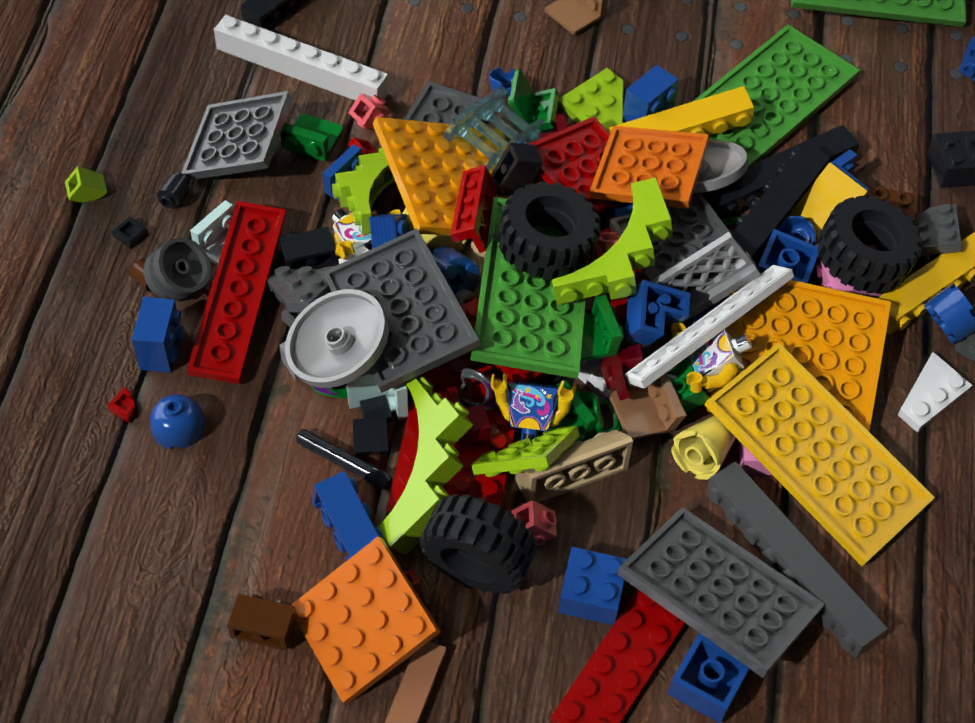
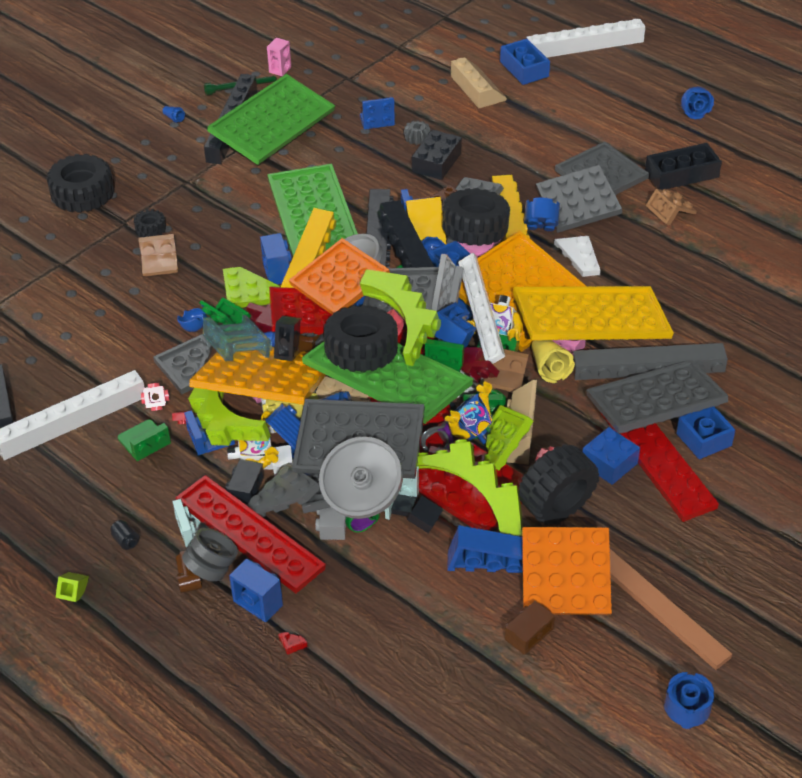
camera: 55 degrees left, 10 degrees down
(130, 232) = (137, 578): black tile -> none
(177, 421) = (332, 614): blue cylinder -> none
(237, 136) = (114, 473): dark grey plate -> none
(344, 459) = (427, 538): black axle -> none
(474, 207) = (304, 368): red fence -> none

